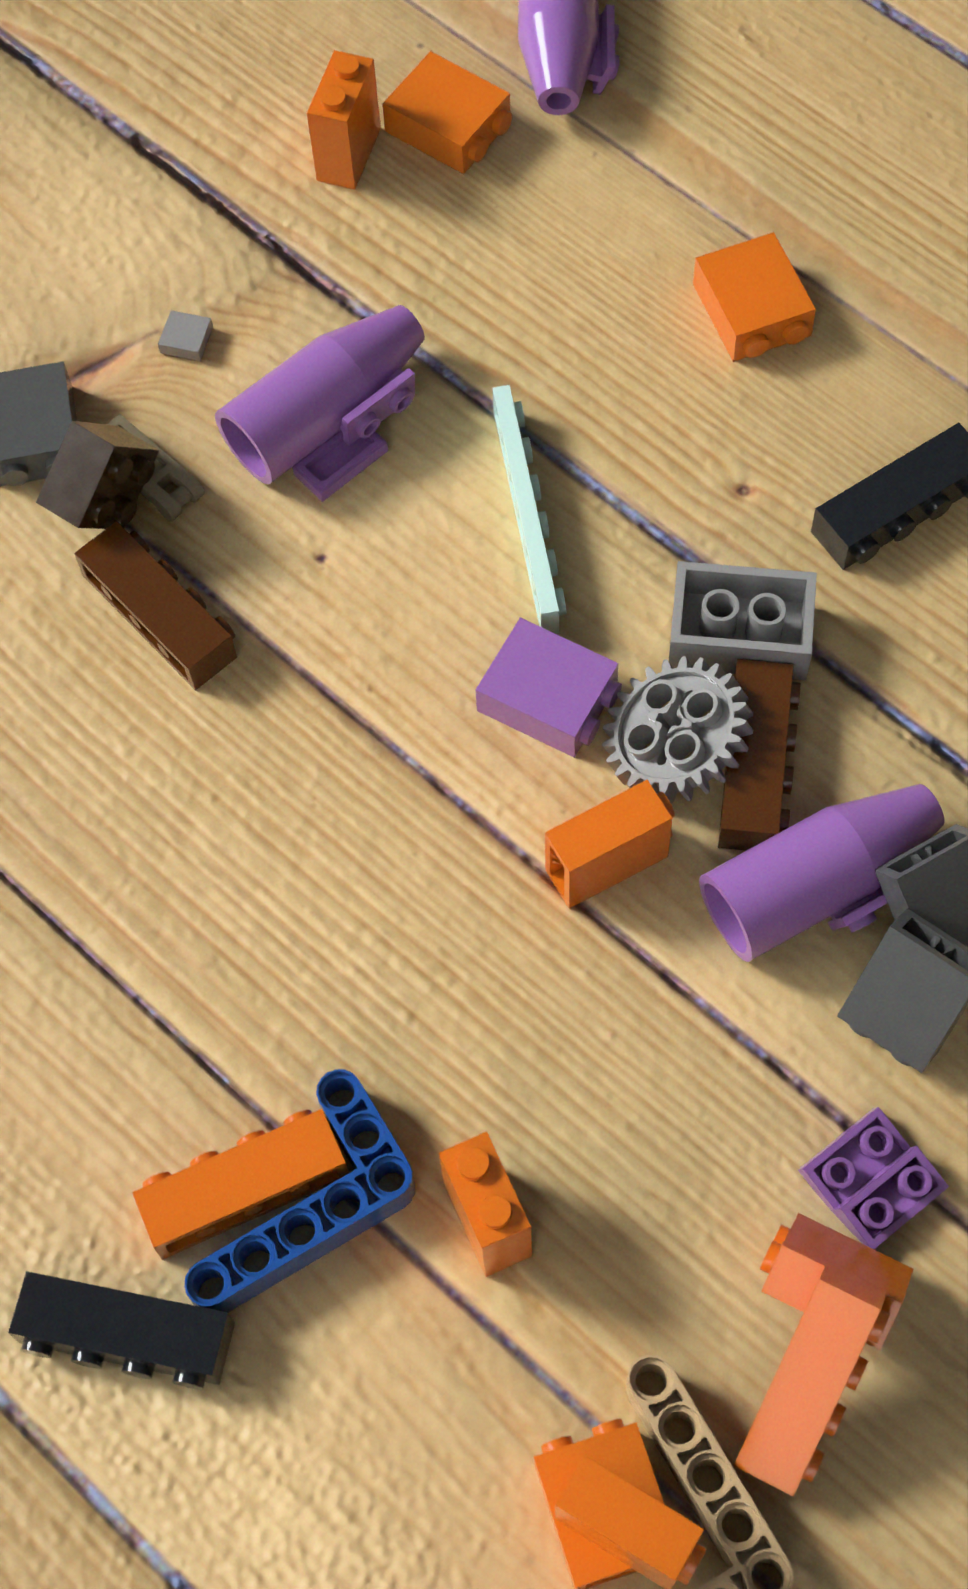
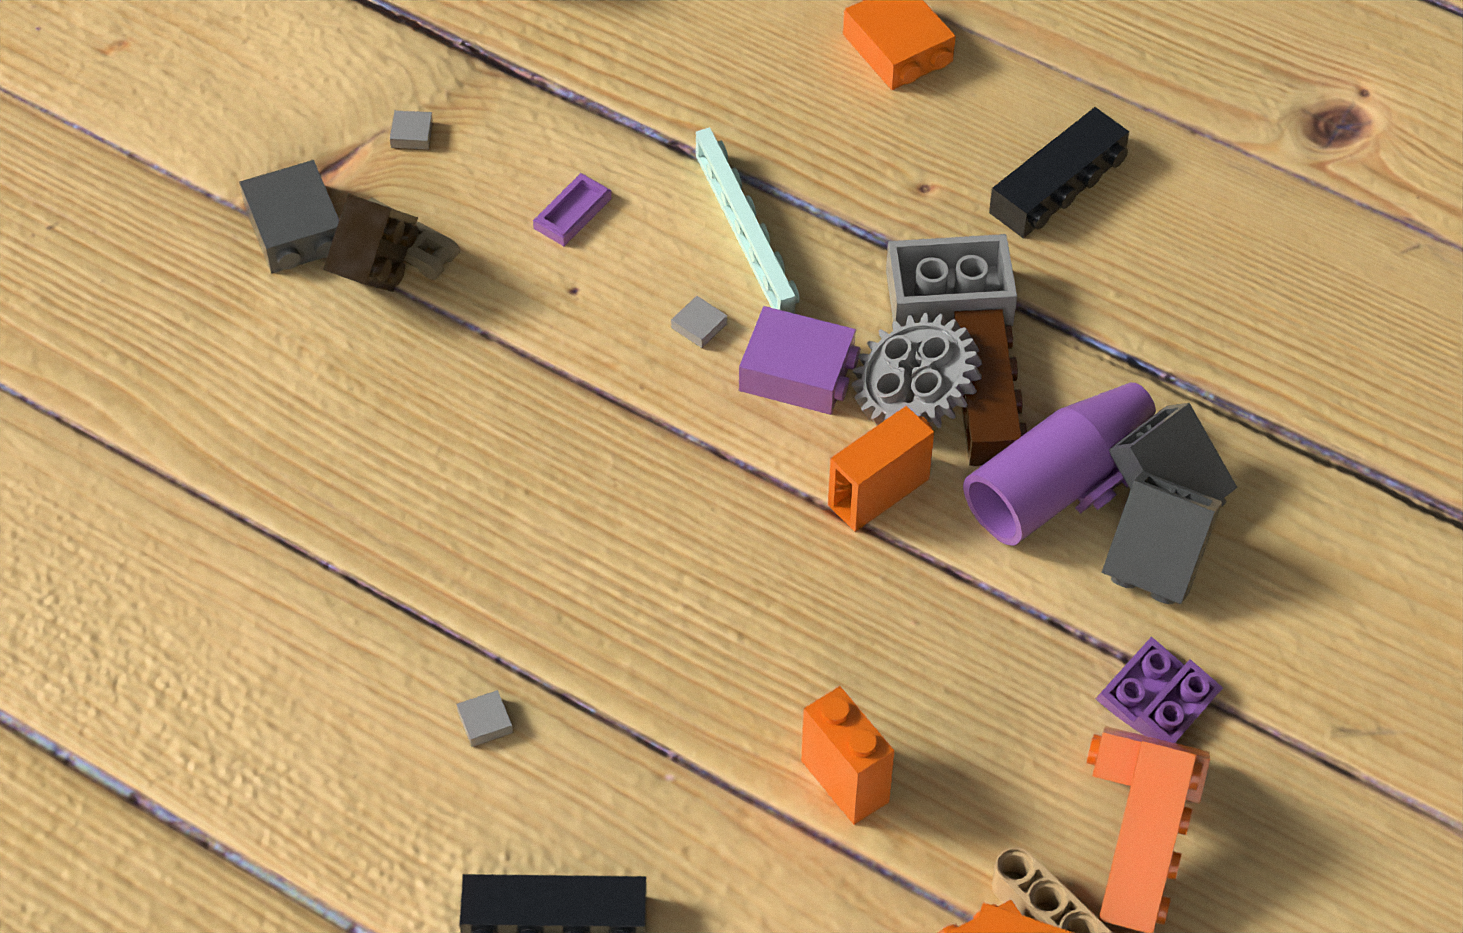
camera: 15 degrees left, 10 degrees down
(103, 1071) = (484, 718): none -> light grey tile
(157, 604) = (441, 344): reddish brown brick -> none
(240, 1182) = (629, 782): orange brick -> none
(317, 1209) = (700, 792): blue beam -> none
(331, 385) = (554, 147): medium lavender piece -> none
(449, 619) = (699, 321): none -> light grey tile

